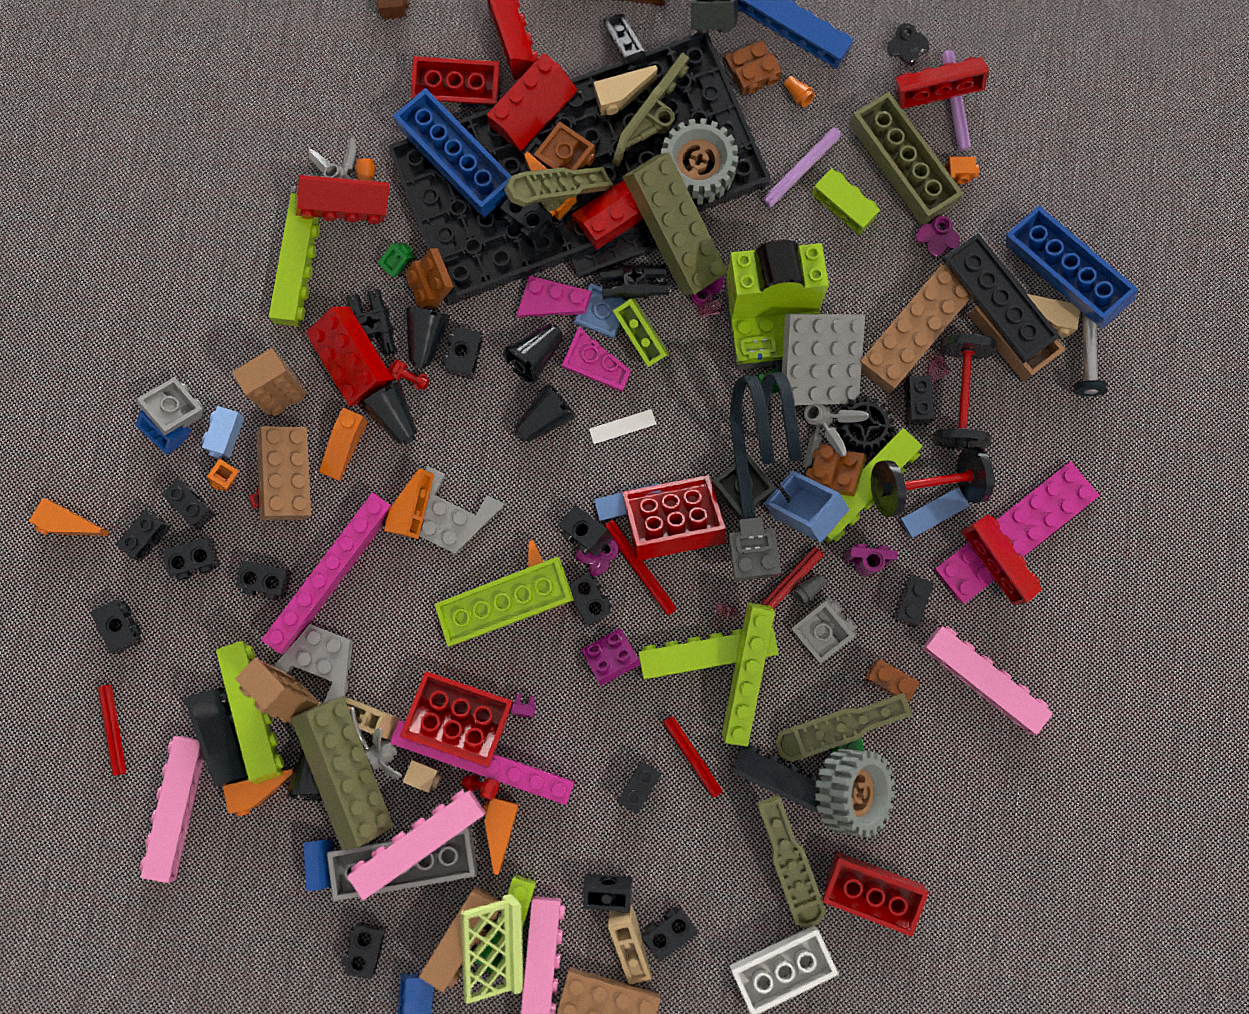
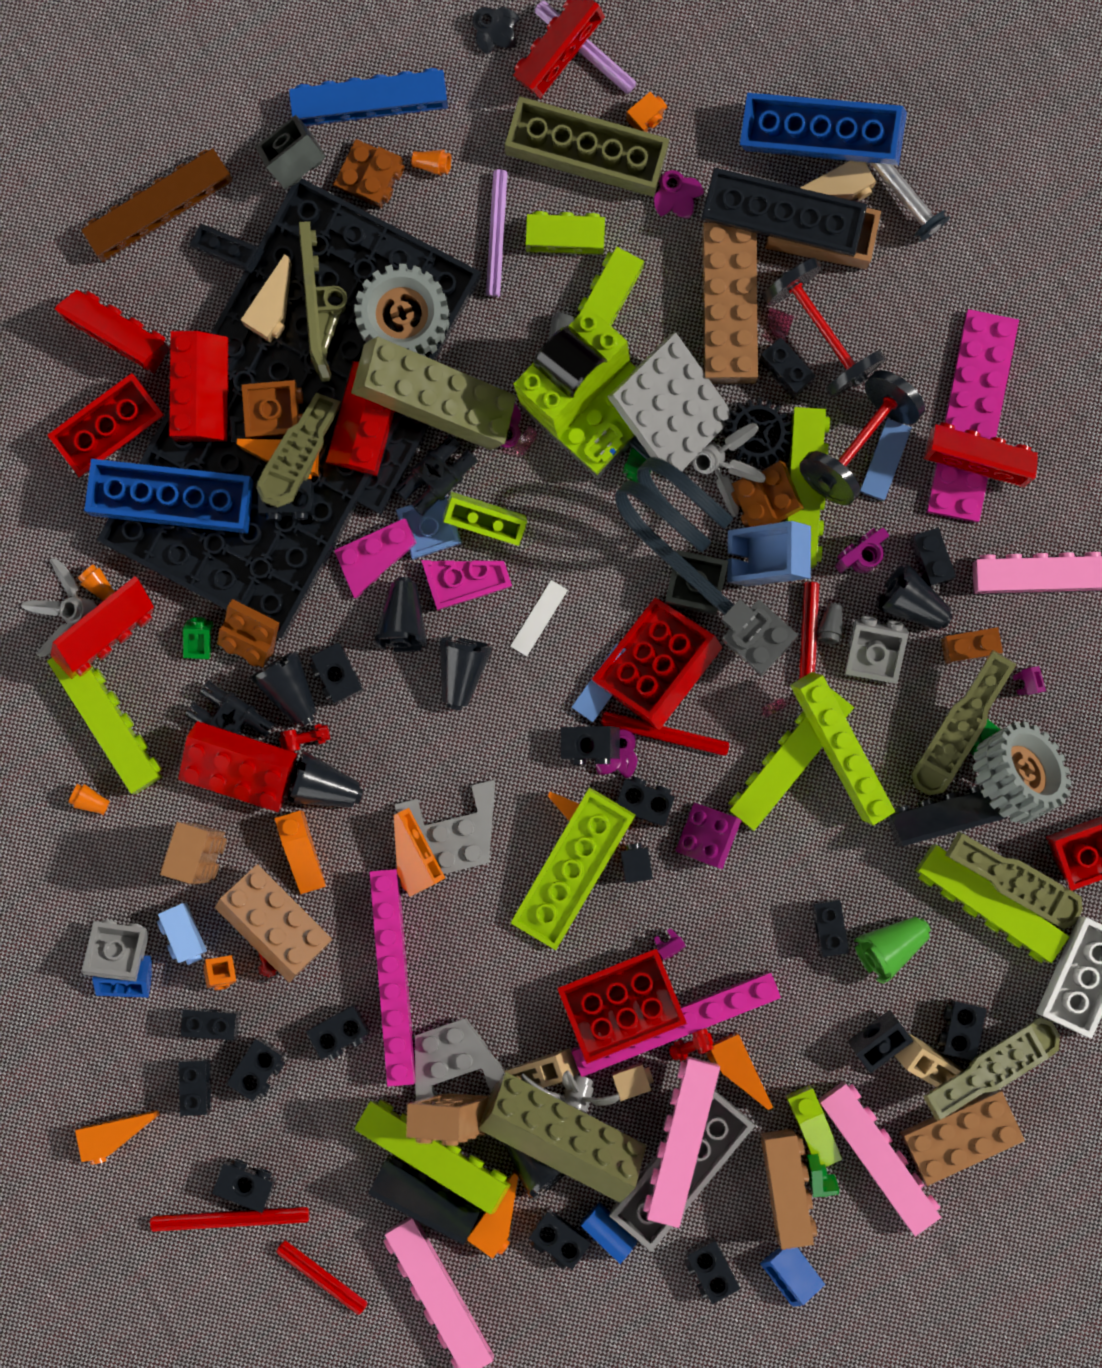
camera: 30 degrees left, 5 degrees up
(89, 640) = (229, 1219): none -> red axle
(240, 300) = (87, 799): none -> orange cone
(290, 838) = (564, 1234): none -> black brick
(510, 942) = (834, 1155): yellowish green fence -> none
(547, 633) = (636, 863): none -> black brick
(669, 835) = (891, 946): none -> bright green cone
(670, 979) = (996, 1067): none -> olive piece
(693, 756) = (853, 861): red axle -> none
(761, 875) = (999, 911): none -> lime brick
(851, 257) = (613, 285): none -> lime brick
(877, 618) = (913, 600): none -> black cone
(913, 739) = (1033, 681): none -> magenta tile

